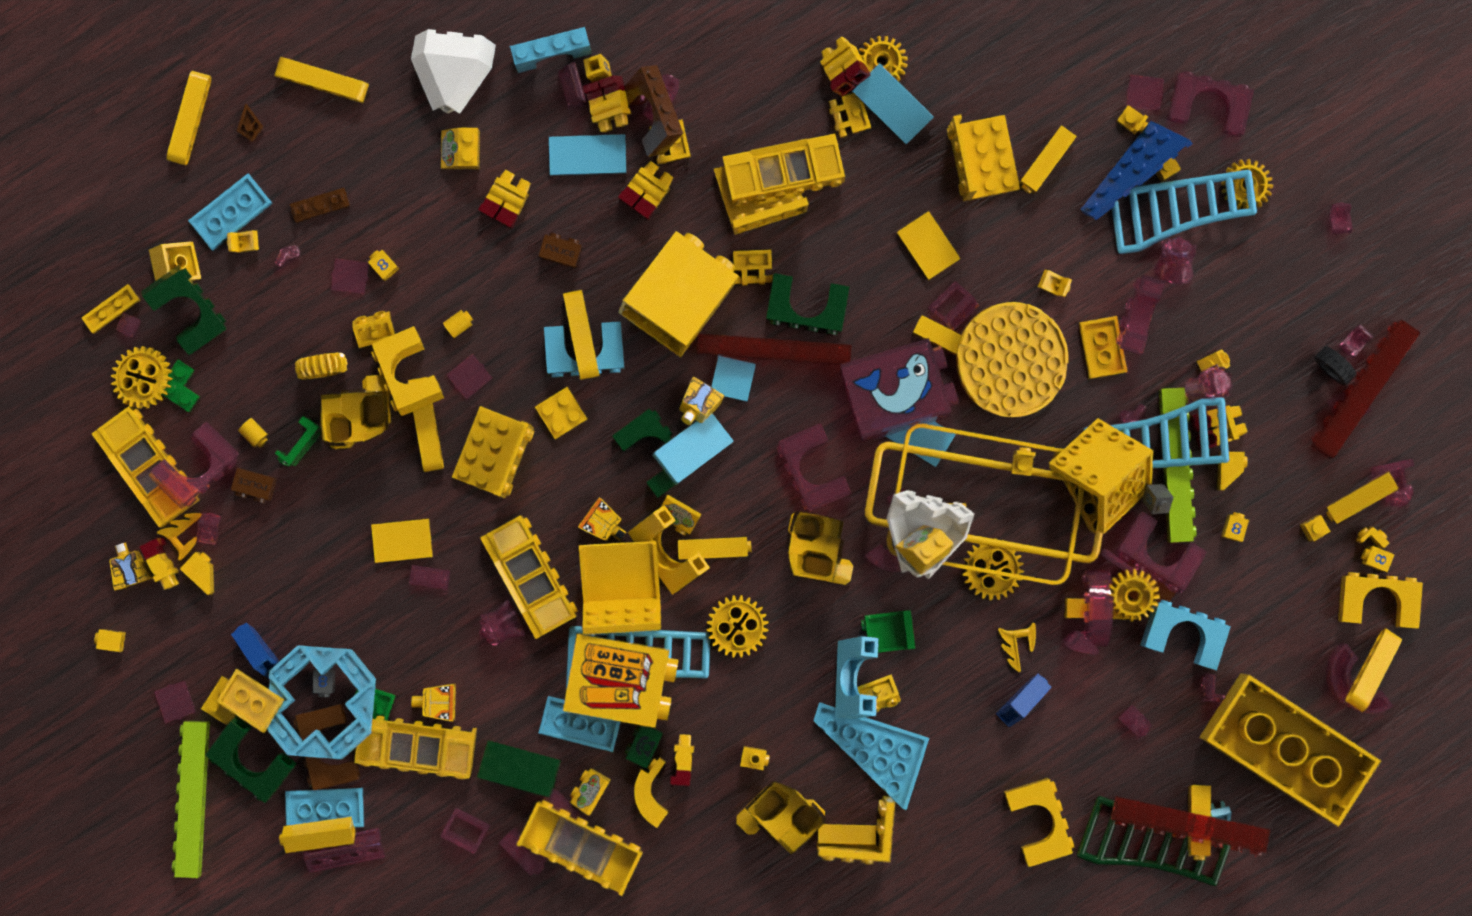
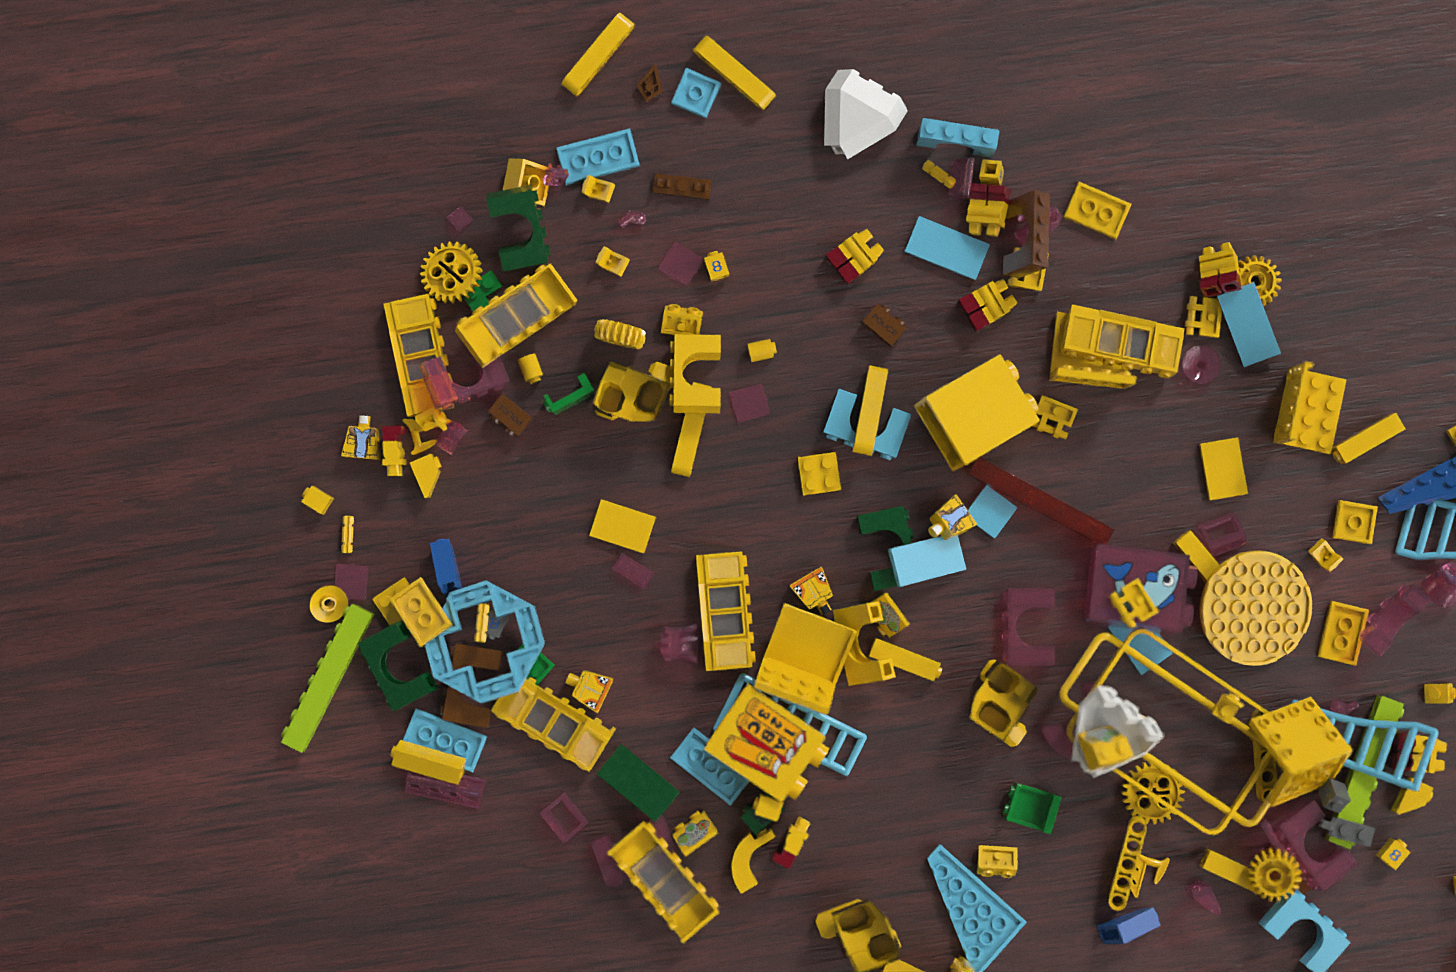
camera: 25 degrees right, 0 degrees up
(110, 309) = (450, 197): yellow plate -> none
(152, 659) = (347, 534): none -> yellow axle
(170, 734) = (331, 611): none -> yellow dish
(182, 519) = (431, 418): none -> yellow bracket
(198, 247) = (555, 176): none -> clear pink tile
(217, 390) = (515, 315): none -> yellow window
(285, 302) = (612, 261): none -> yellow bracket
(295, 114) = (696, 93): none -> medium azure tile
(309, 685) = (481, 622): none -> yellow axle
(460, 148) = (833, 191): yellow slope -> none
(493, 452) = (742, 482): yellow bracket -> none
(550, 90) = (939, 174): none -> yellow axle
(645, 738) = (767, 807): none -> yellow brick
(710, 60) = (1097, 210): none -> yellow tile
(723, 615) = (887, 725): yellow gear -> none
(754, 758) = (857, 868): yellow brick -> none
(829, 320) = (1062, 469): dark green arch -> none
(850, 656) = (986, 815): medium azure arch -> none
(868, 149) = (1210, 361): none -> clear pink dish
(899, 400) = (1138, 600): none -> yellow plate
(996, 634) = (1123, 871): none -> yellow beam
(1069, 241) = (1355, 522): none -> yellow plate
(1099, 606) = (1238, 872): clear pink brick -> none
(1184, 525) = (1349, 831): none -> dark grey hinge
(1210, 384) = (1431, 711): clear pink hat -> none

